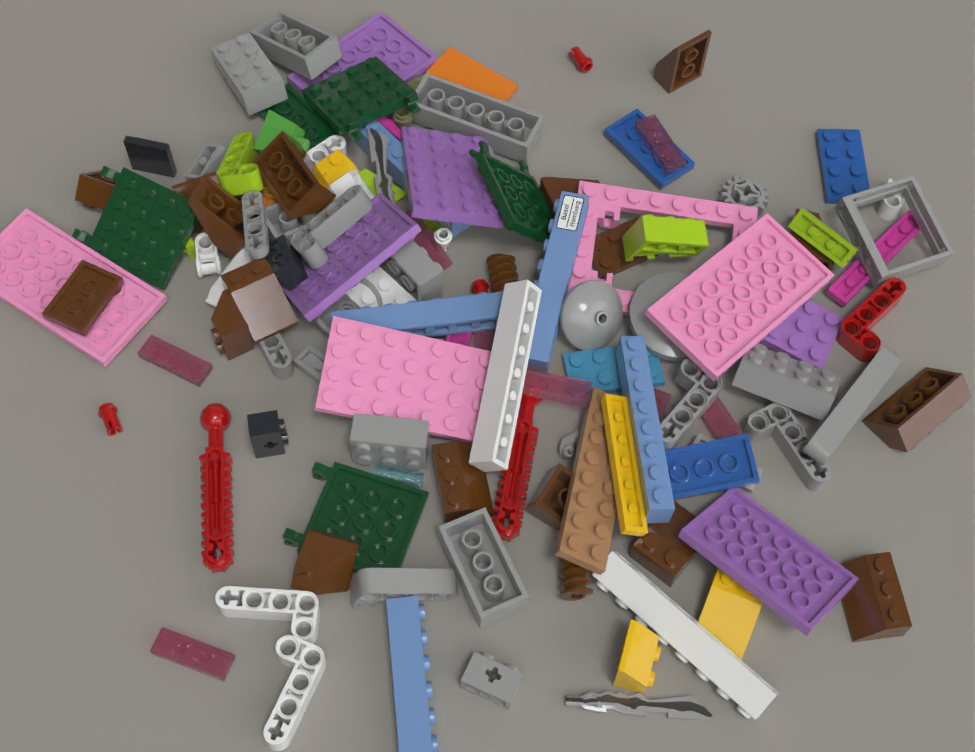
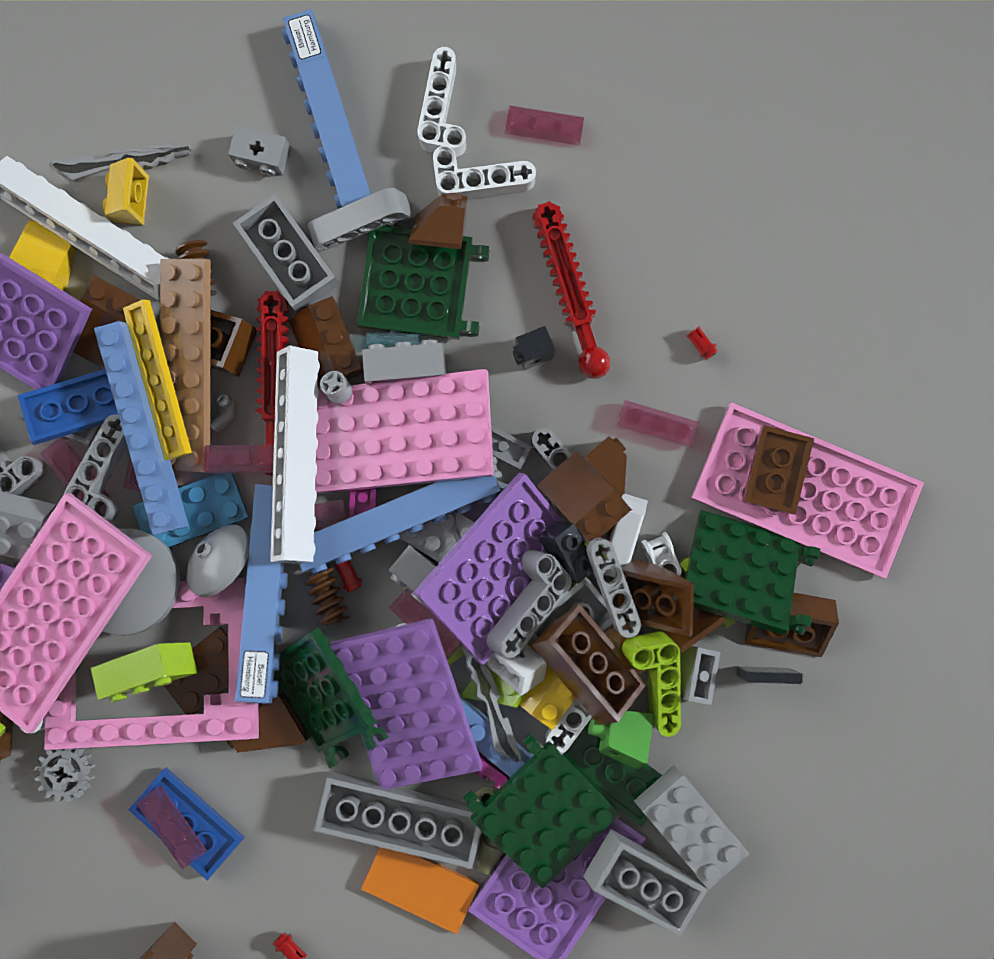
camera: 170 degrees right, 25 degrees up
(460, 423) = (336, 380): none -> light grey wheel

